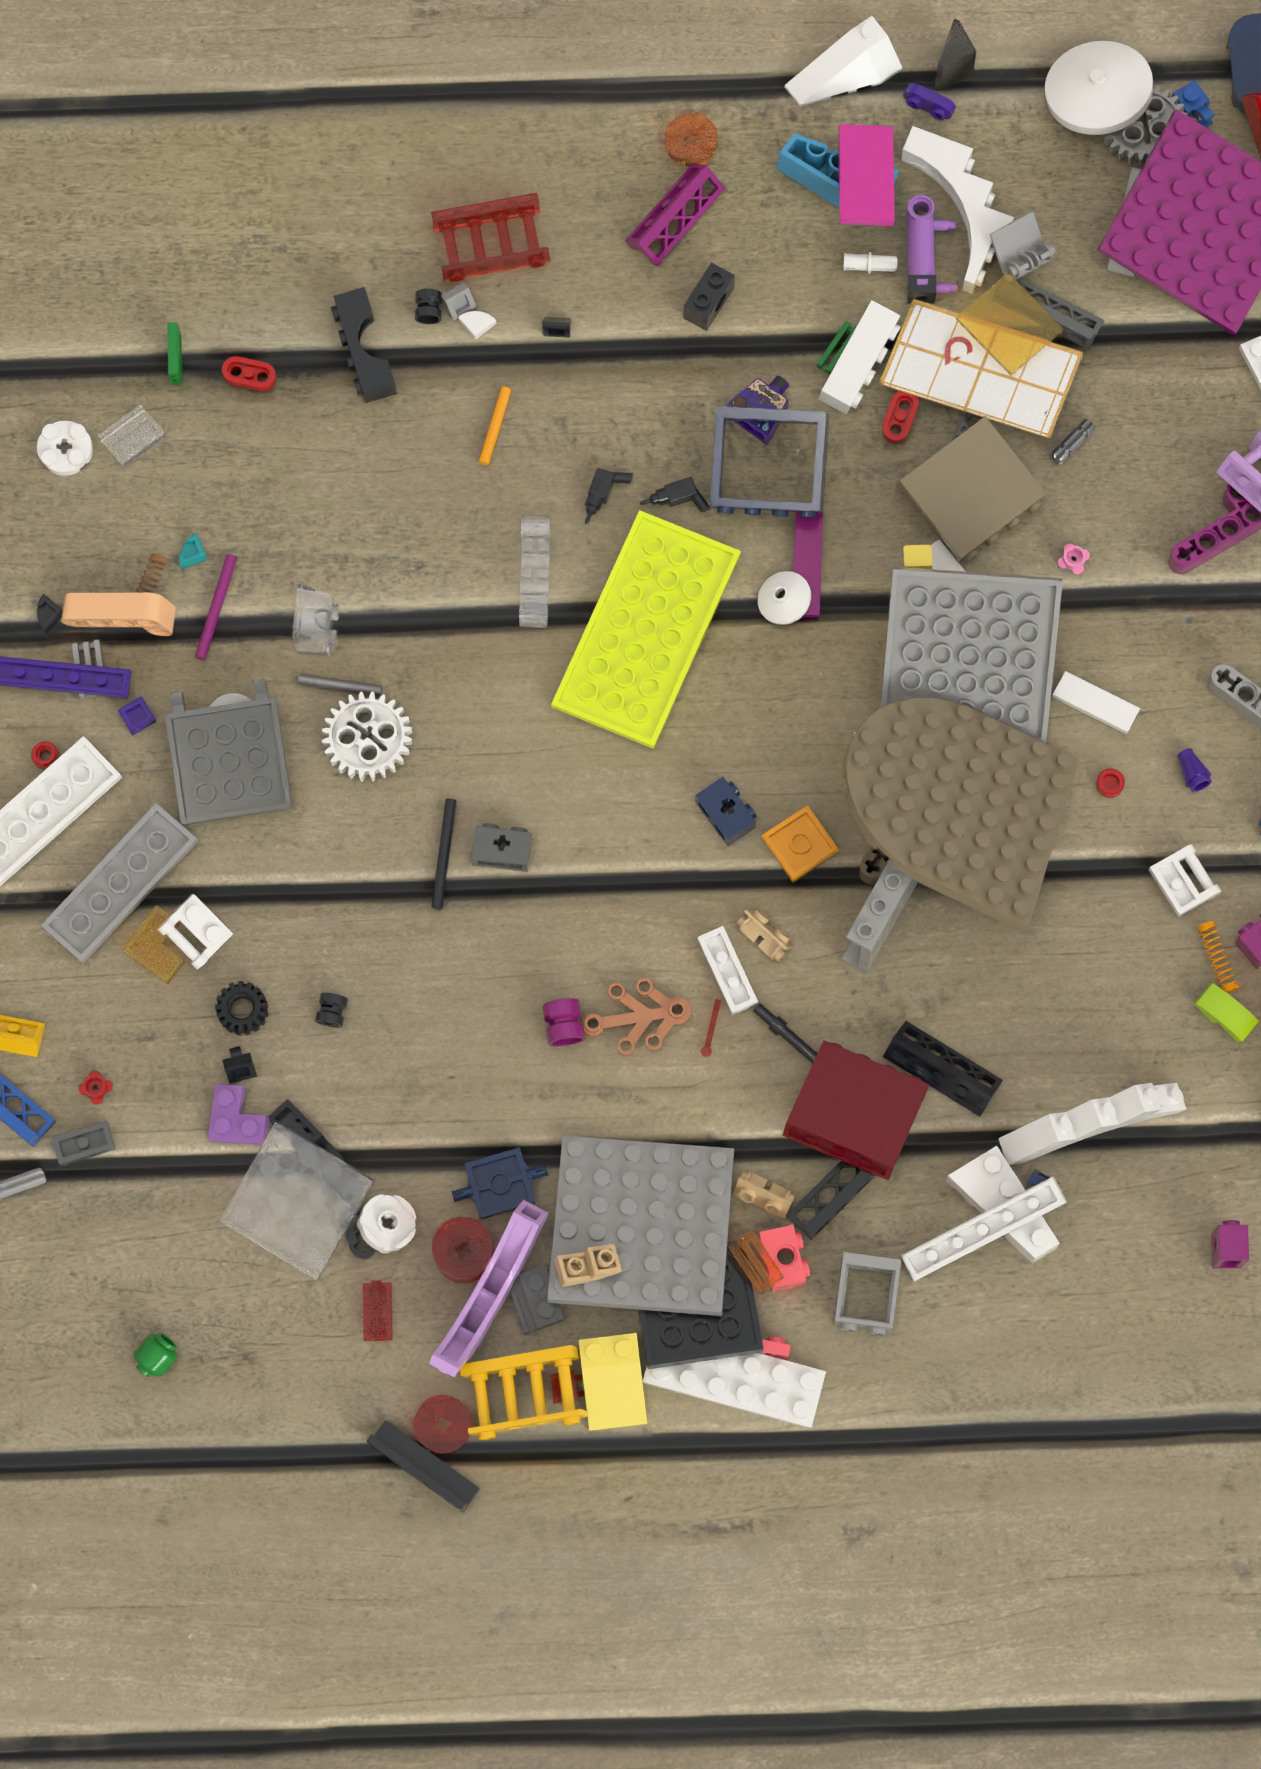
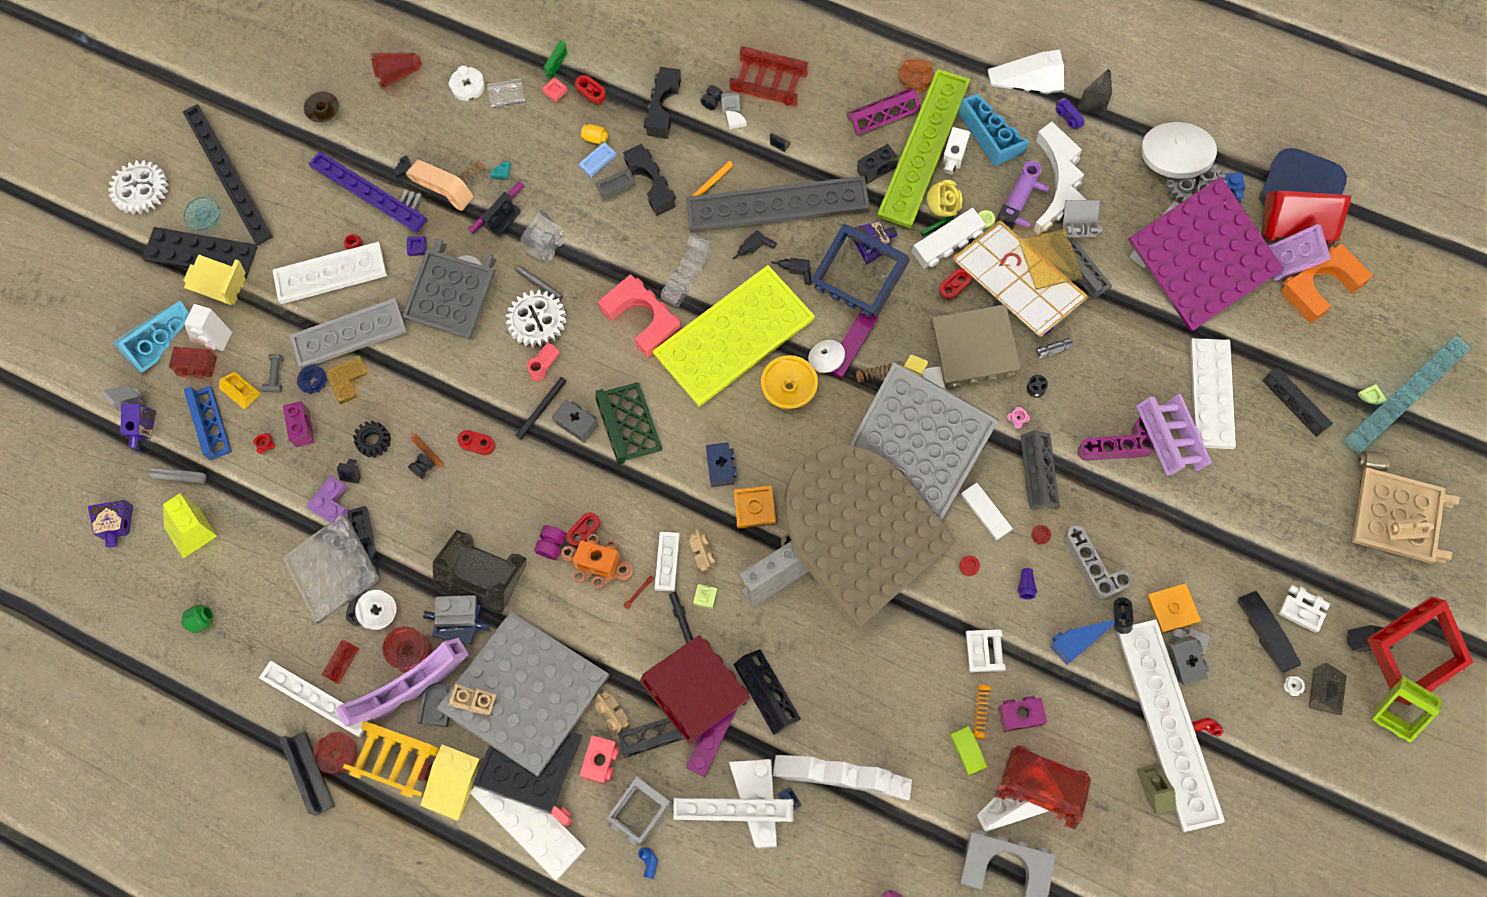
camera: 30 degrees right, 5 degrees down
(57, 1007) = (272, 387): none -> dark grey piece
(65, 1247) = (186, 525): none -> neon yellow slope
(83, 1143) = (236, 472): dark grey plate -> none
(95, 967) = (307, 374): none -> clear blue gear
(130, 1037) = (298, 424): none -> magenta brick
(198, 398) = (554, 89): none -> coral plate
(201, 924) = (378, 380): white plate -> none
(234, 616) = (500, 215): none -> black bracket
(294, 437) = (594, 134): none -> yellow brick
(317, 471) = (597, 160): none -> light blue tile
(323, 984) = (426, 450): none -> orange piece
(364, 495) = (615, 184): none -> dark grey plate
(368, 1373) = (307, 695): none -> white plate
(381, 448) = (640, 163): none -> black arch
(384, 943) = (475, 442): none -> red plate
(411, 789) = (543, 361): none -> coral piece
(478, 637) = (632, 293): none -> coral arch
(493, 1110) = (471, 572): none -> clear smoke windscreen
(494, 1170) = (455, 611): none -> light grey plate
(551, 827) = (611, 422): none -> dark green fence
(595, 985) = (581, 529): none -> red plate
(603, 418) = (777, 204): none -> dark grey plate
(653, 1019) = (604, 567): none -> orange brick
(742, 1242) = (575, 753): clear orange tile -> none
(757, 640) = (789, 371): none -> yellow dish
(759, 242) = (923, 149): none -> lime plate
(799, 990) = (705, 596): none -> yellowish green tile
(805, 219) = (955, 150): none -> white torso
(827, 305) = (944, 199): none -> light yellow cylinder
(843, 604) = (879, 369): none -> medium nougat piece
(866, 175) = (1007, 134): dark pink tile -> none
(870, 262) = (984, 188): white axle -> none
(895, 302) = (988, 218): none -> yellowish green tile
(908, 1175) = (708, 746): none -> magenta plate
(913, 1344) = (650, 861): none -> blue arm
(1076, 499) = (1039, 382): none -> black wheel
(1133, 616) = (1036, 470): none -> dark grey fence
(1178, 698) = (1041, 534): none -> clear red plate

